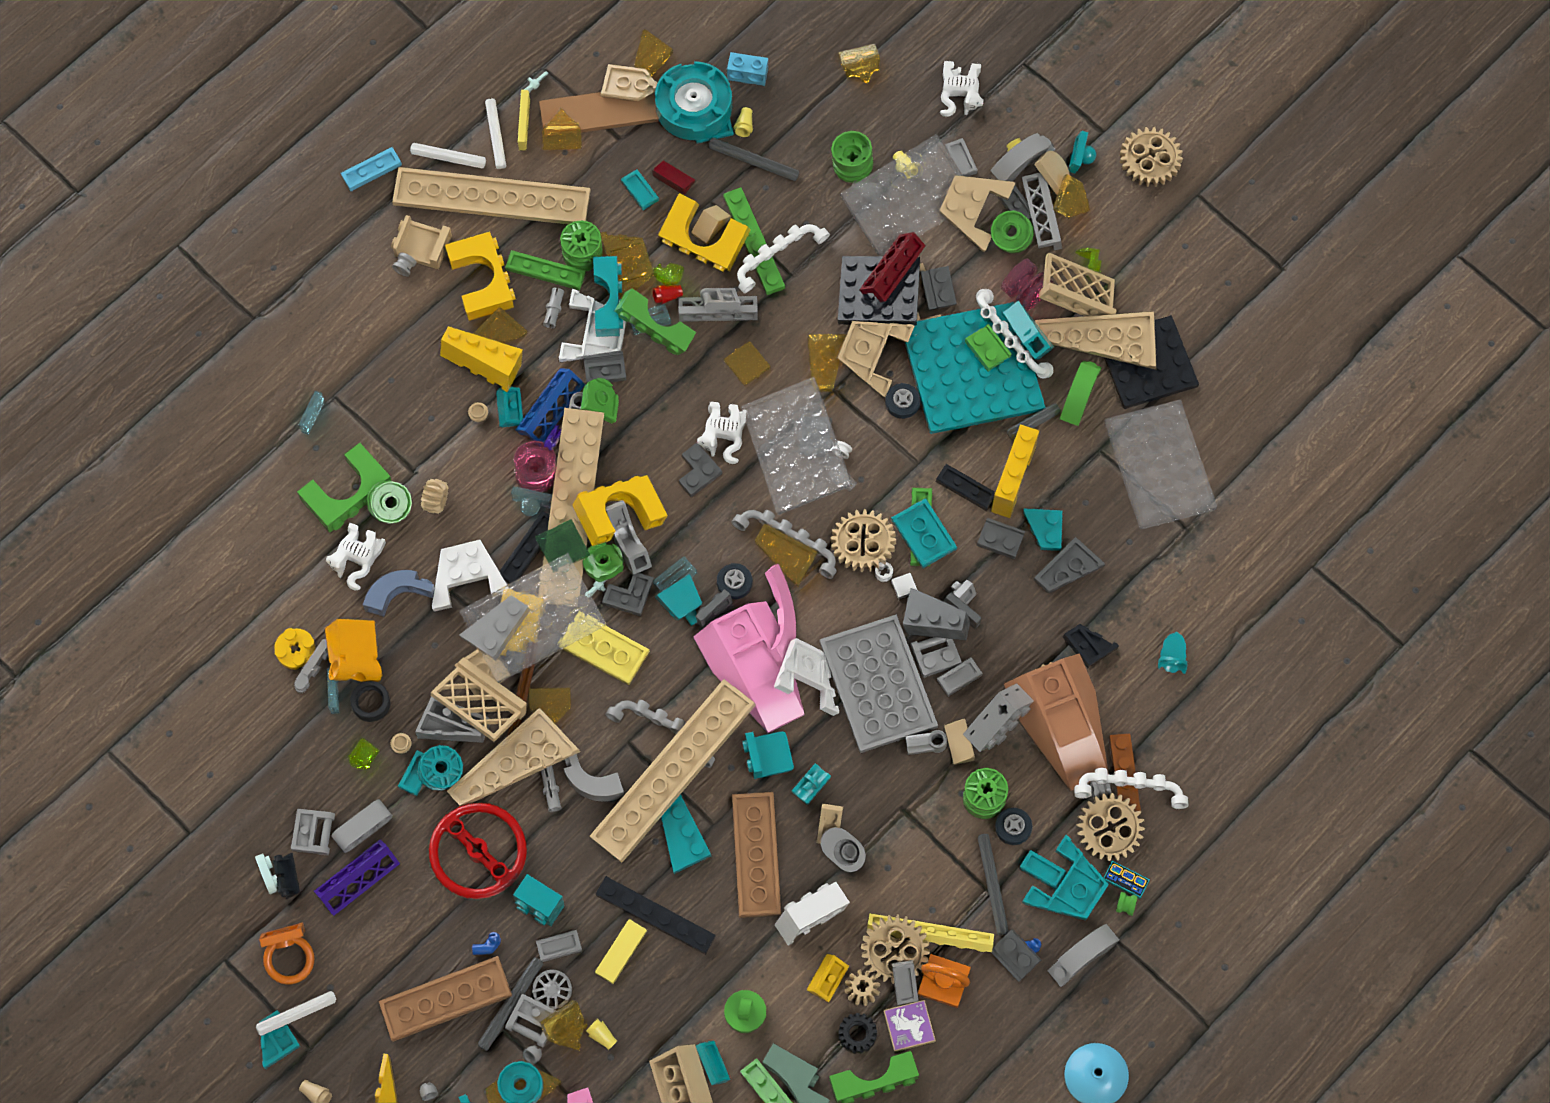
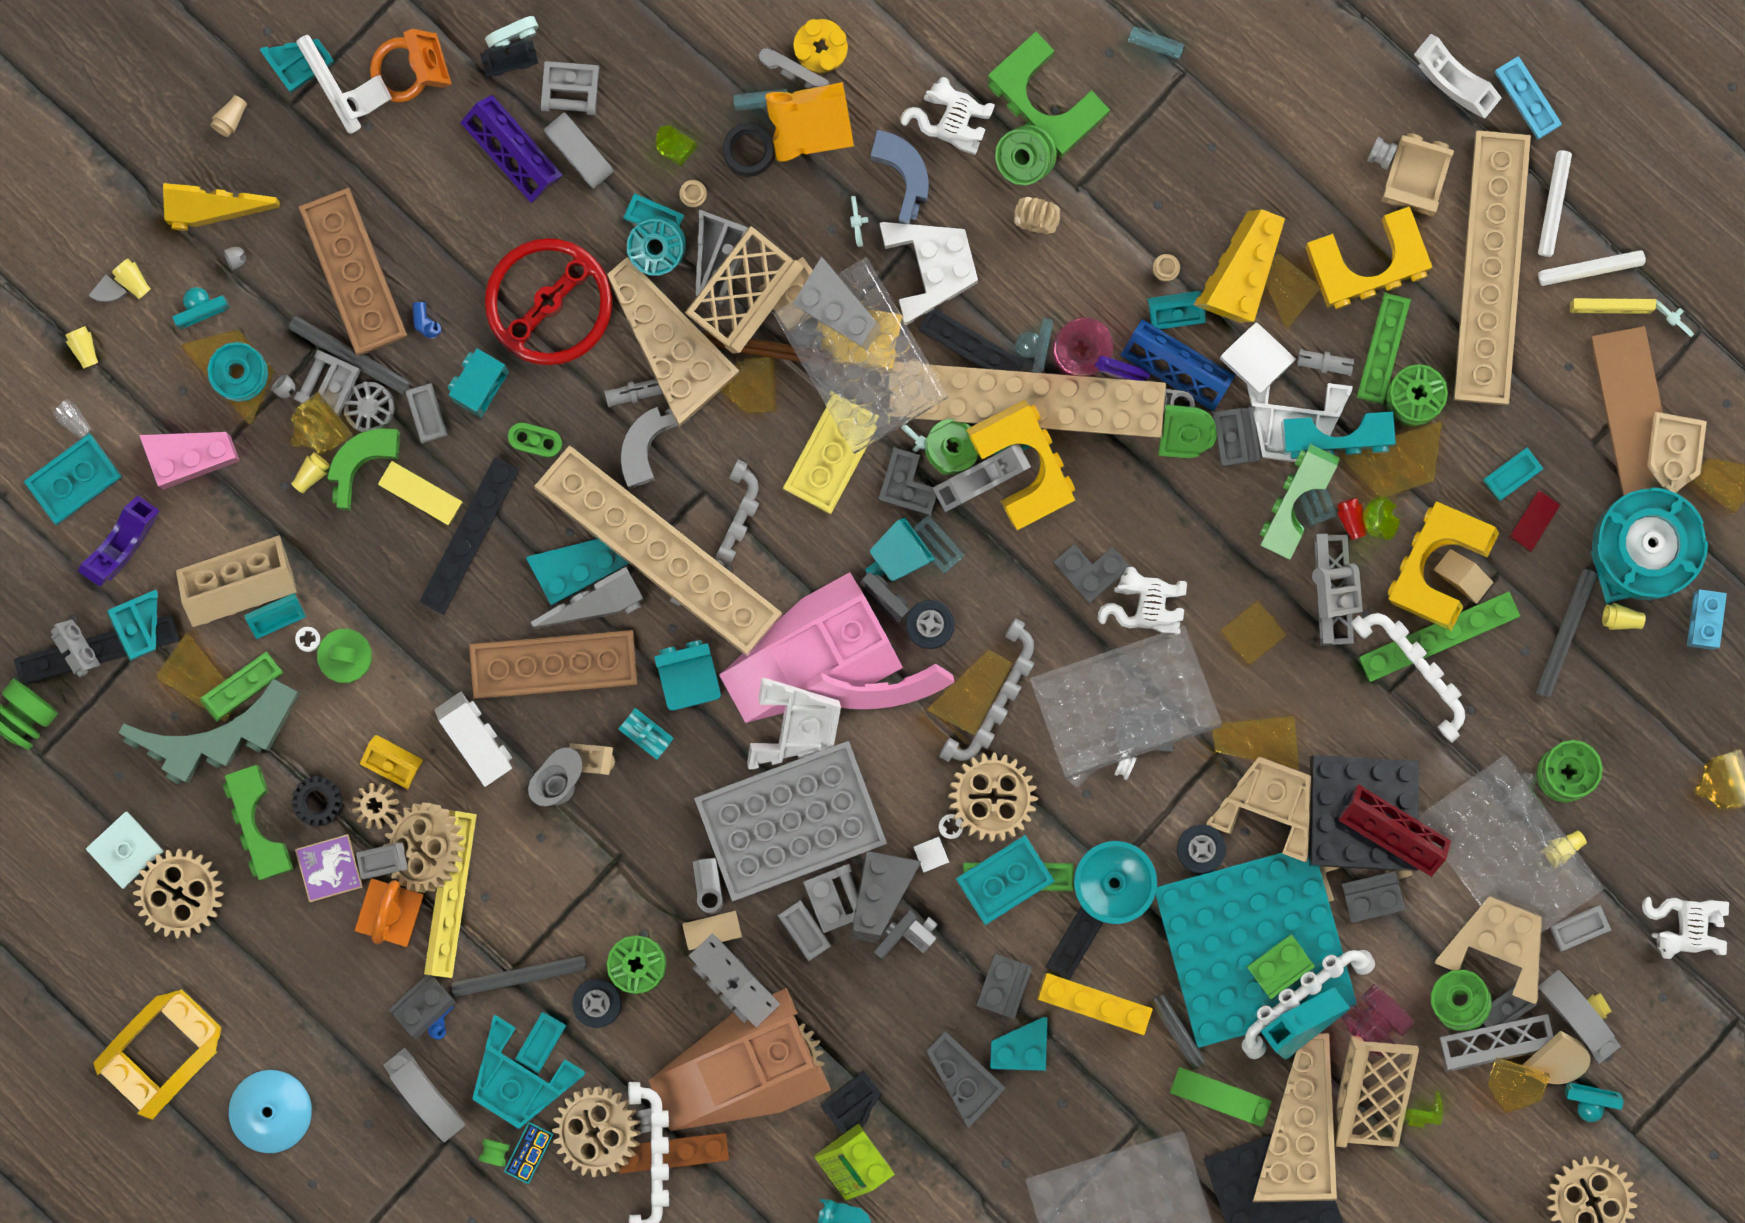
camera: 90 degrees right, 15 degrees up
(308, 984) = (366, 98): none -> white bracket
(356, 213) = (1454, 79): none -> white arch
(429, 626) = (856, 221): none -> light aqua piece
(549, 351) = (1257, 358): none -> white slope
(561, 133) = (1593, 360): clear yellow slope -> none
(562, 540) = (969, 390): clear green tile -> none
(583, 863) = (535, 440): none -> bright green plate
(600, 1008) = (355, 453): none -> bright green arch
(707, 810) = (610, 597): none -> light grey wedge
(736, 1036) = (301, 633): none -> white bush
(930, 445) = (1135, 877): none -> teal dish
(1131, 642) = (854, 1164): none -> lime slope

